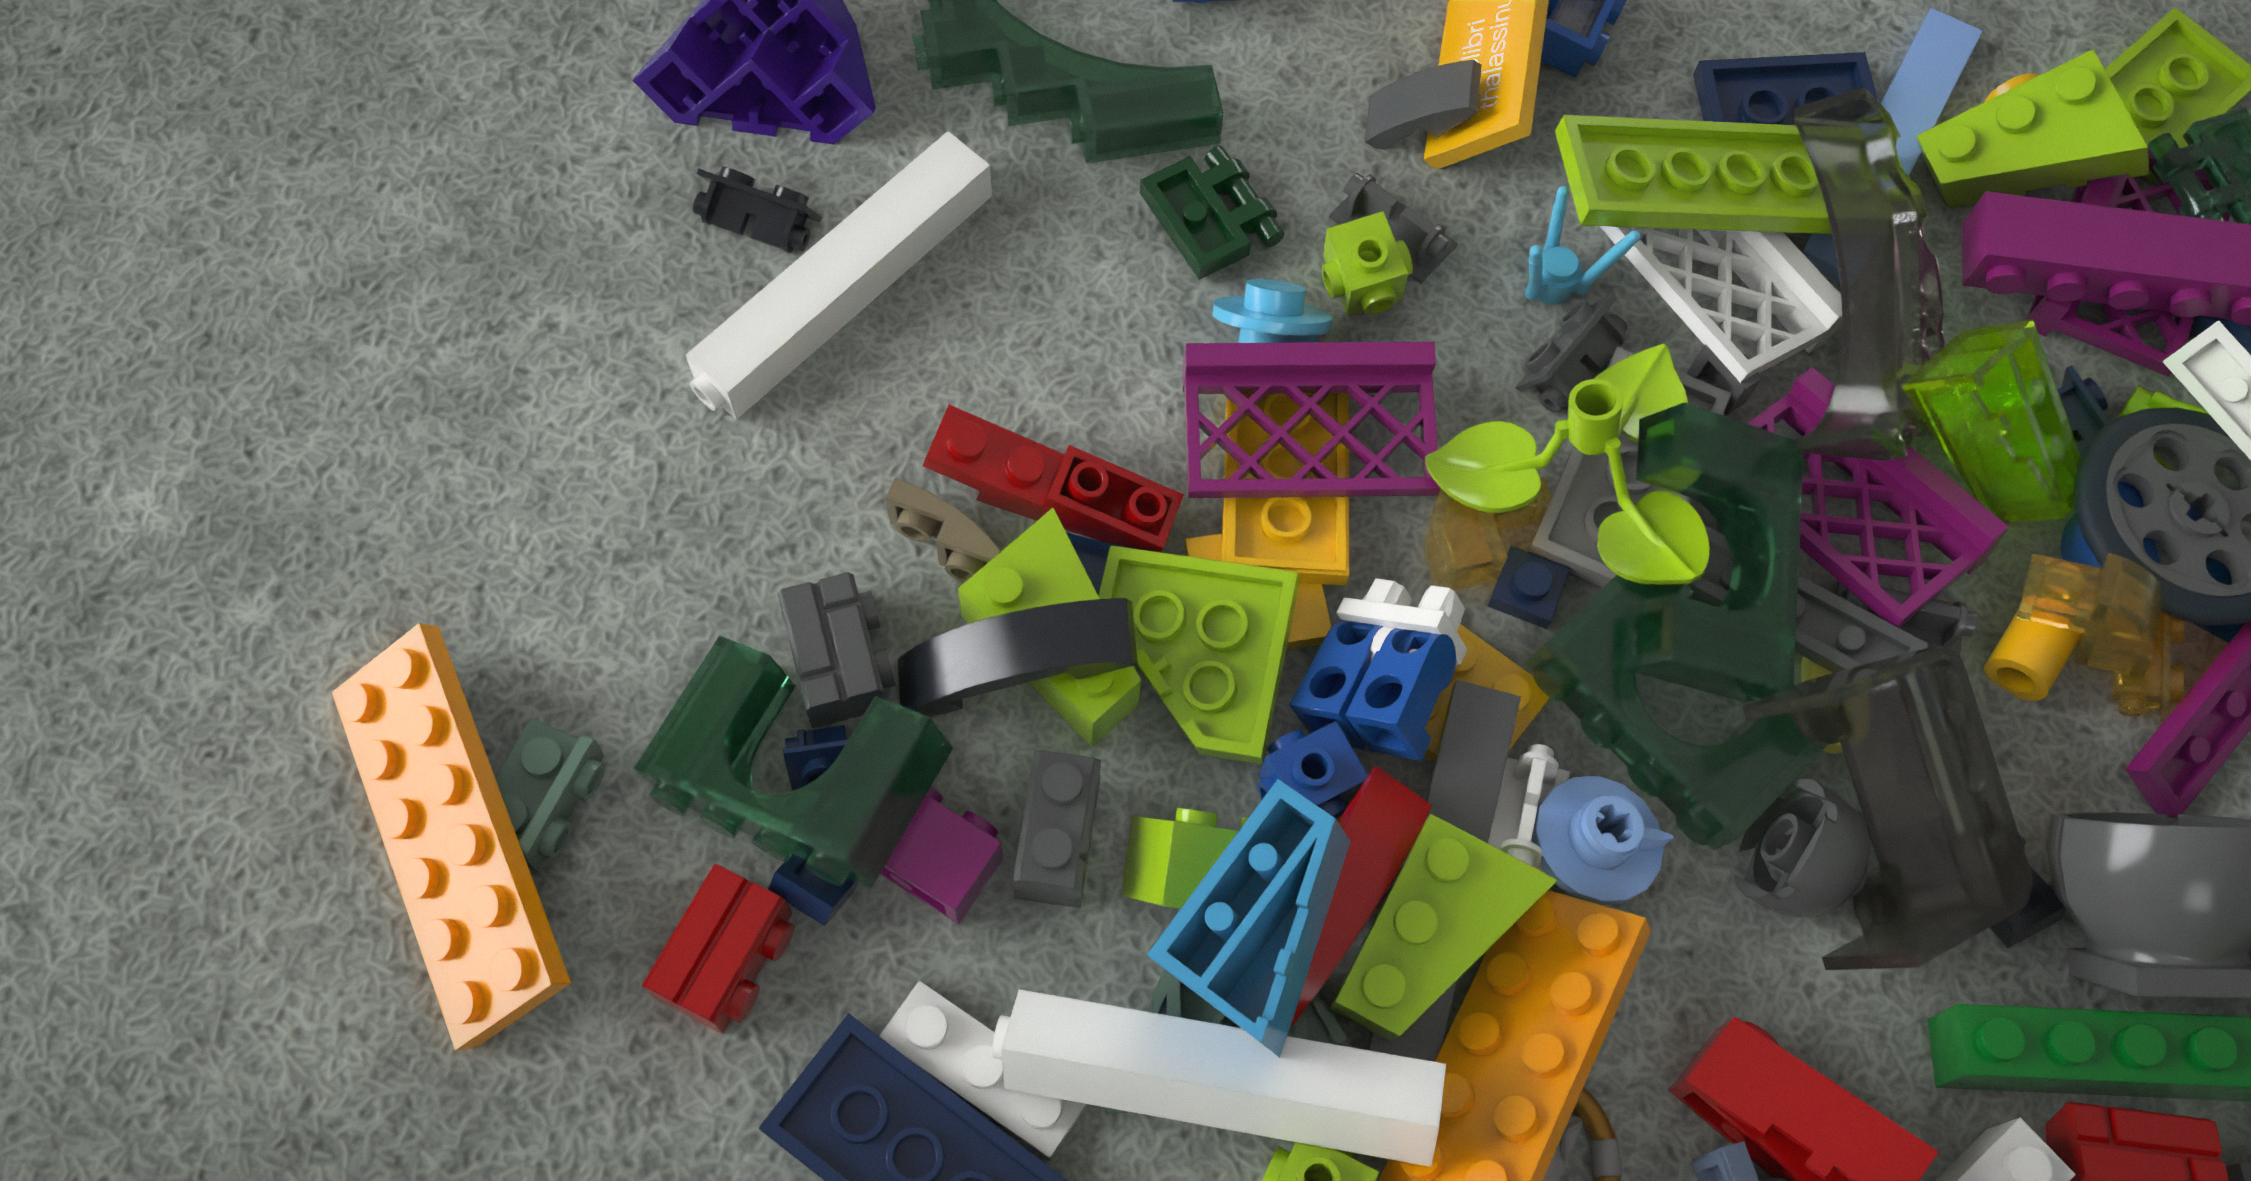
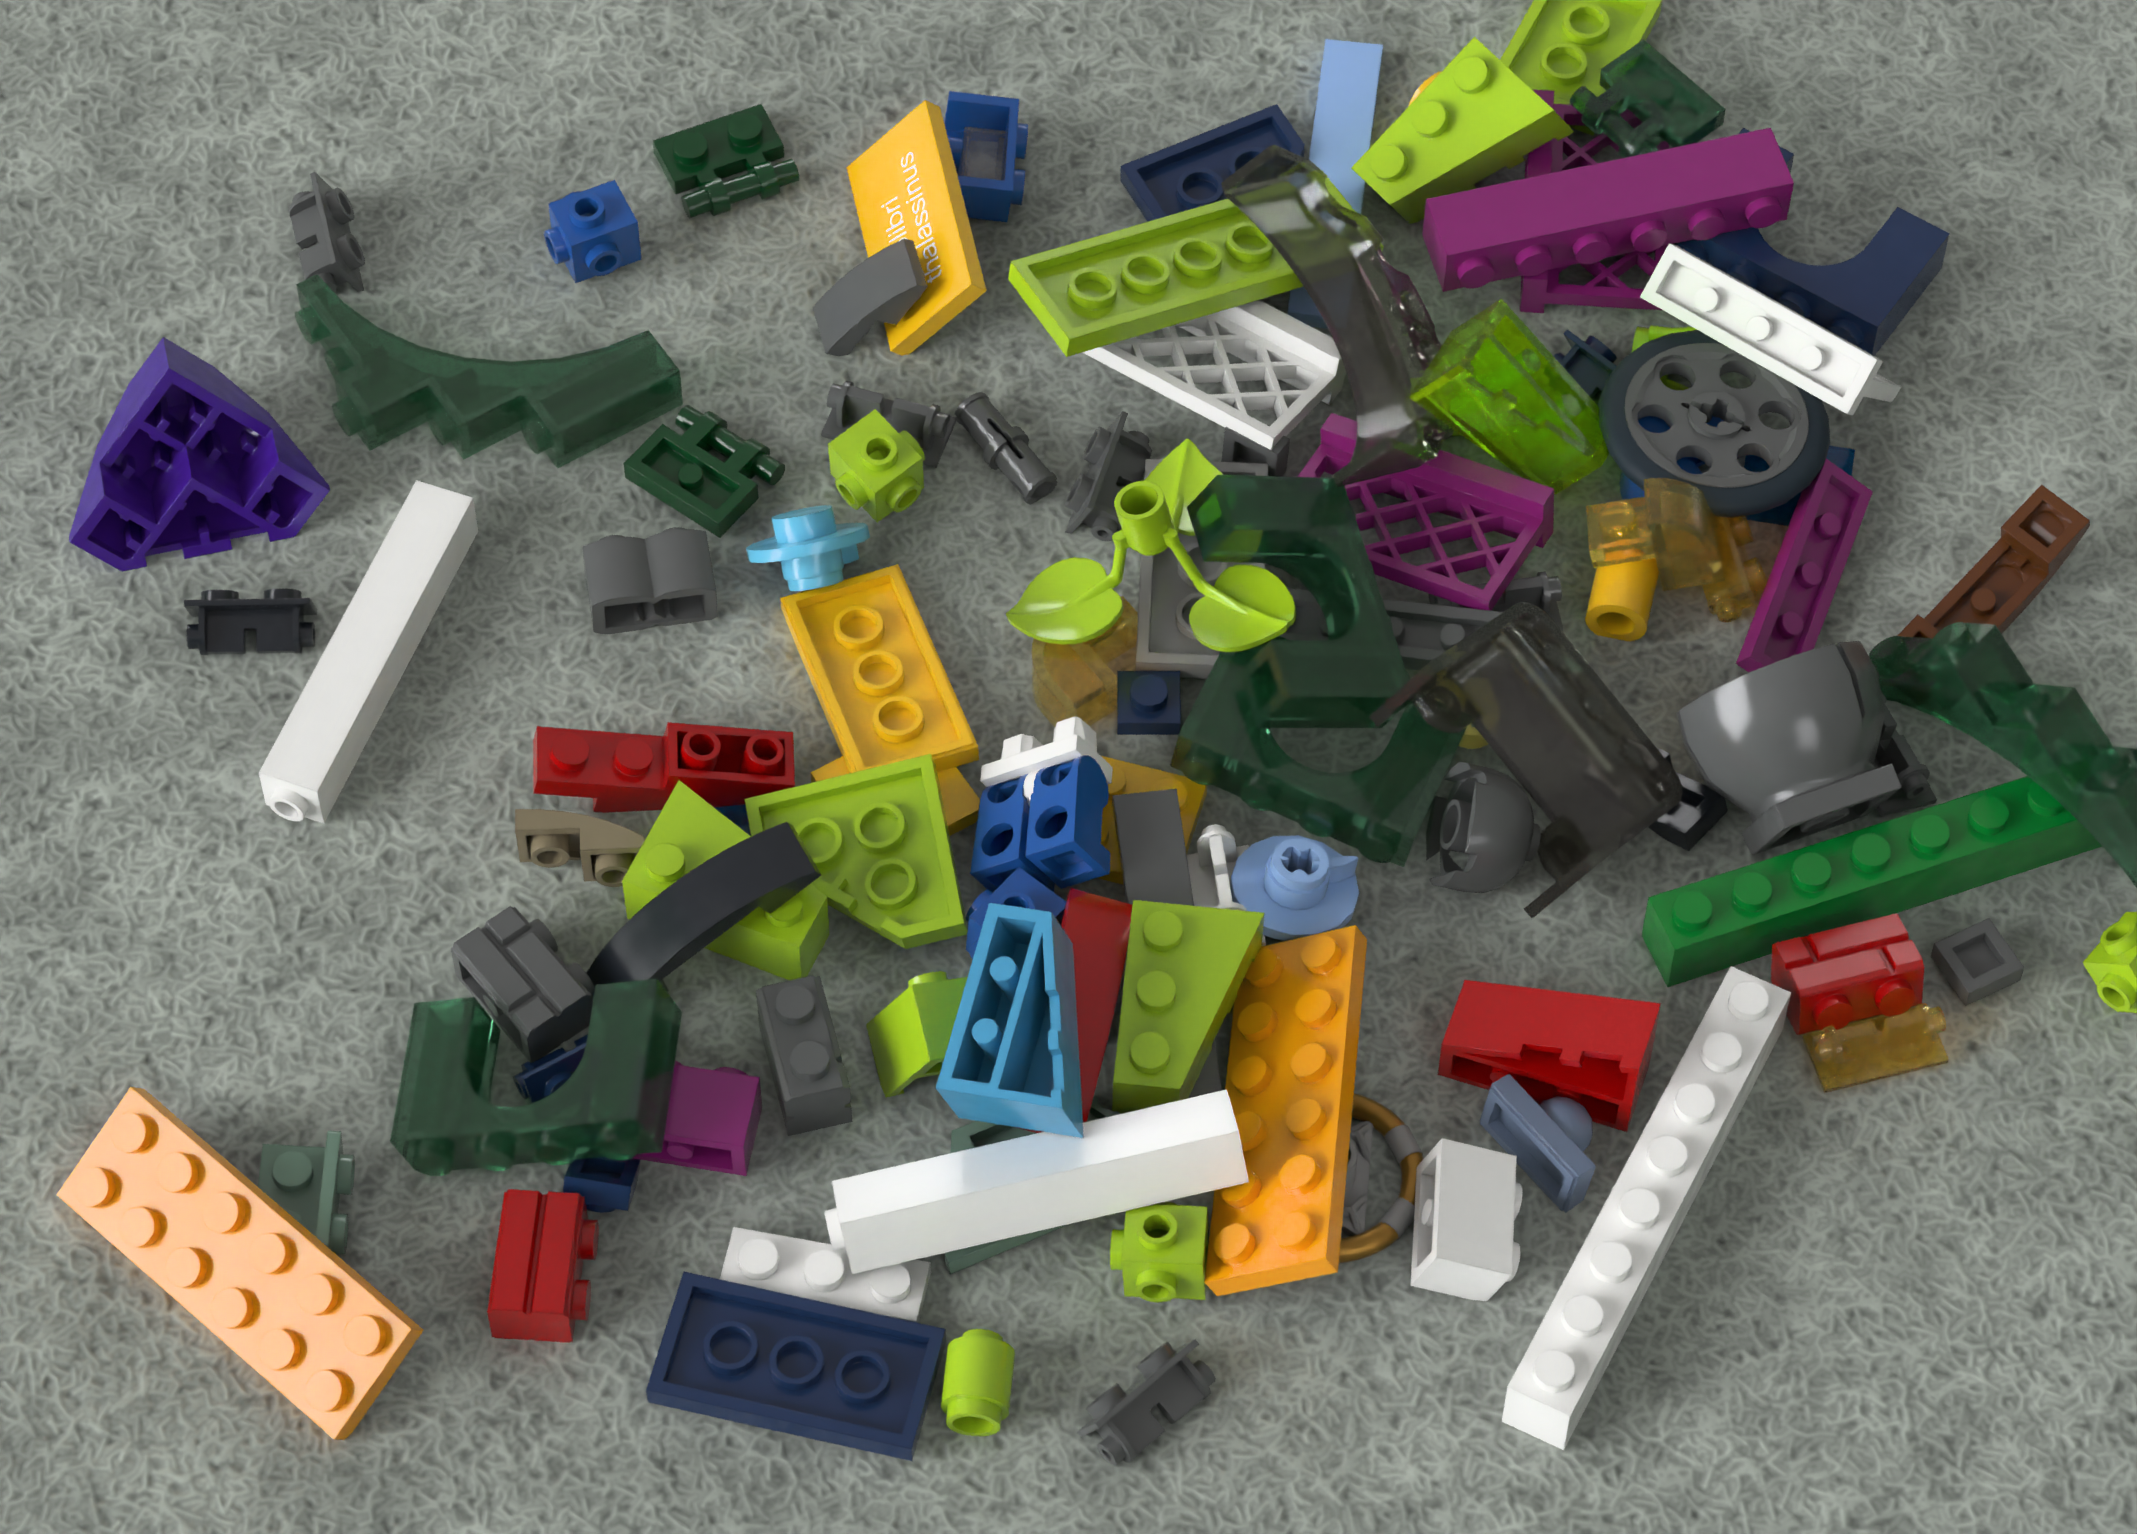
camera: 20 degrees left, 10 degrees down
(1116, 298) = (649, 580): none -> dark grey brick
(1298, 370) = (853, 583): magenta fence -> none
(1491, 288) = (1005, 447): none -> dark grey pin
(1557, 271) = (1061, 408): medium azure plant -> none

